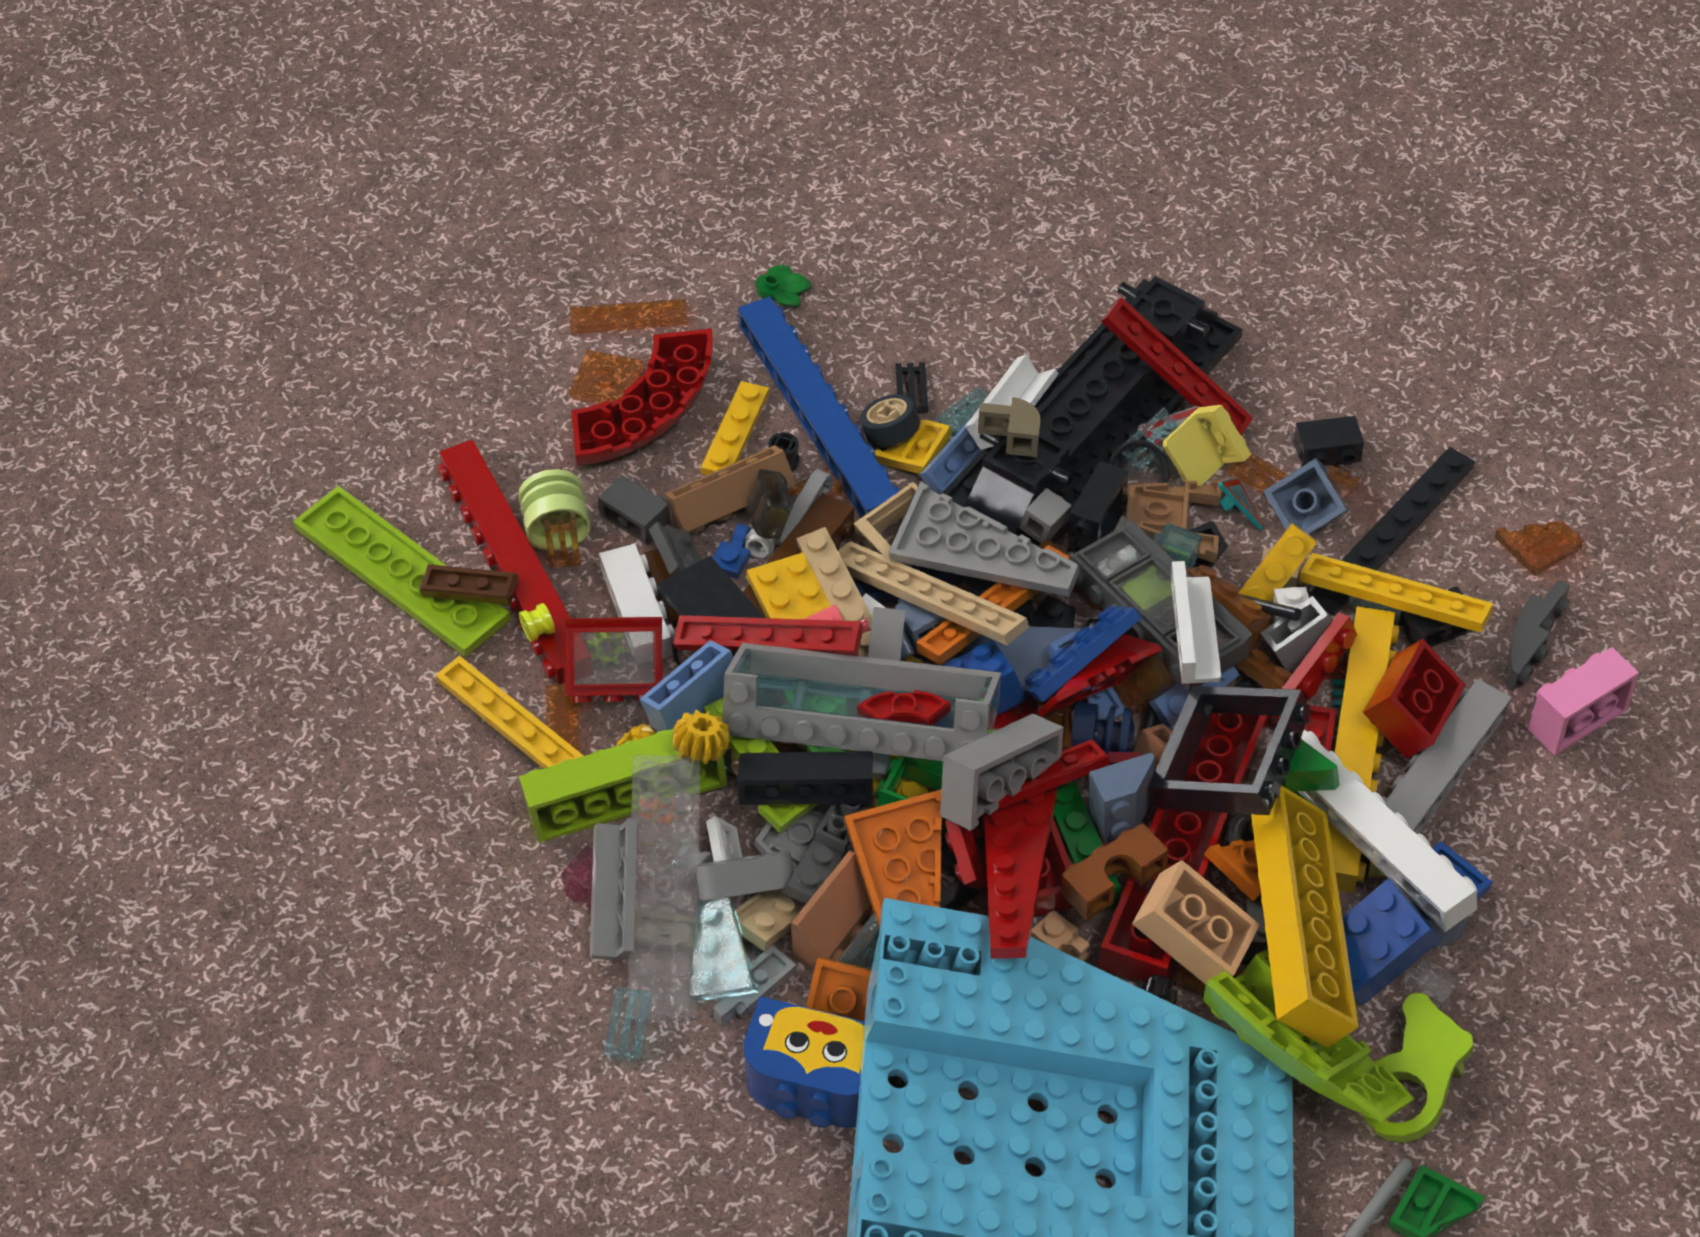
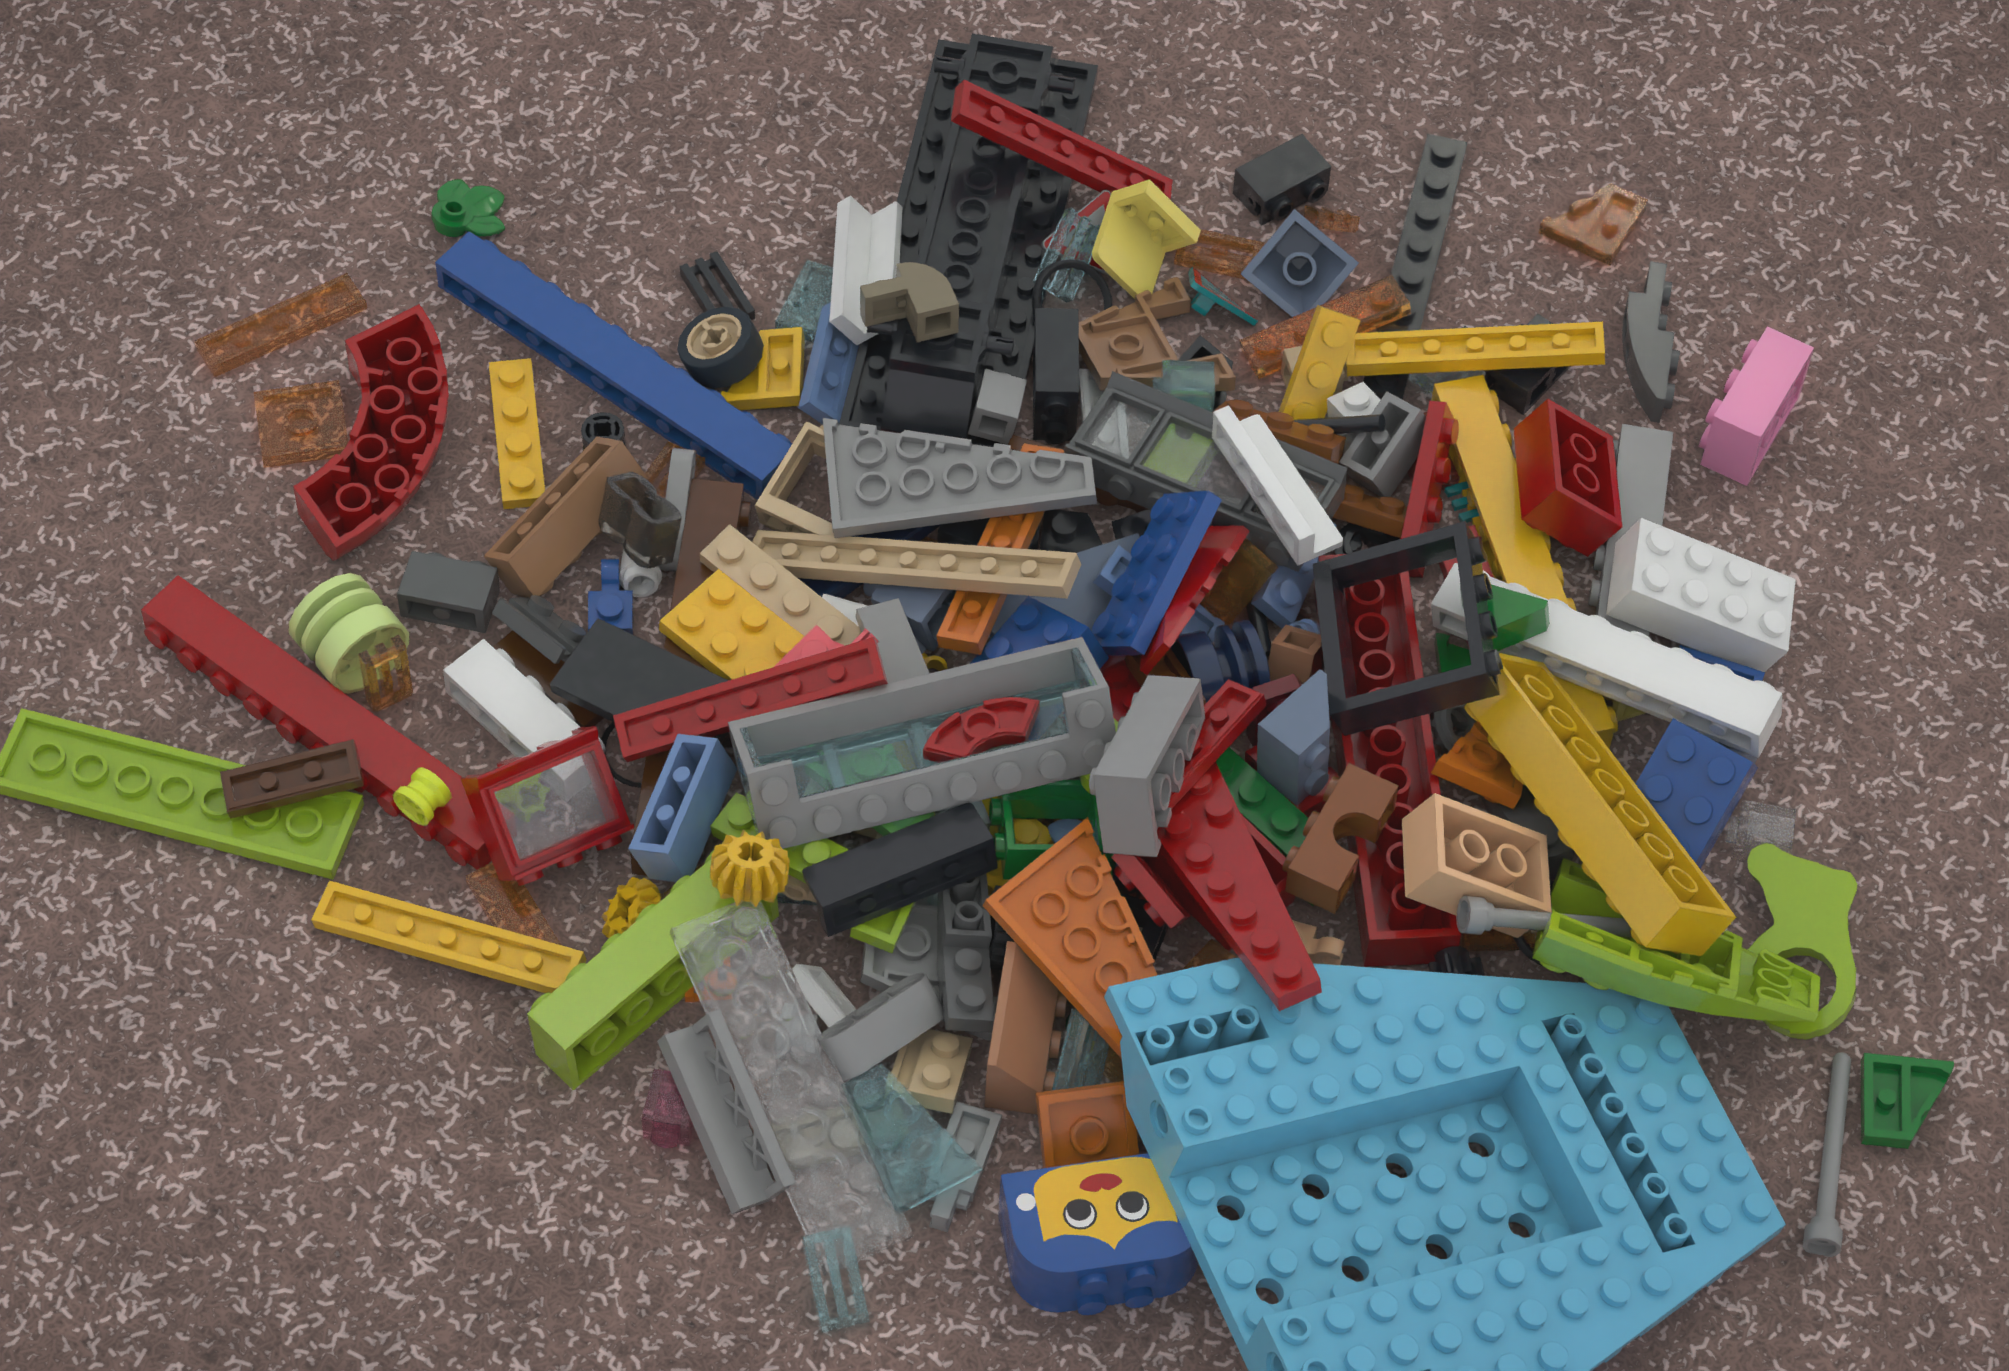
camera: 30 degrees left, 5 degrees up
(1177, 956) = (1477, 915): none -> light grey piece
(1332, 543) = (1372, 304): none -> clear orange plate
(1468, 811) = (1701, 596): none -> white brick

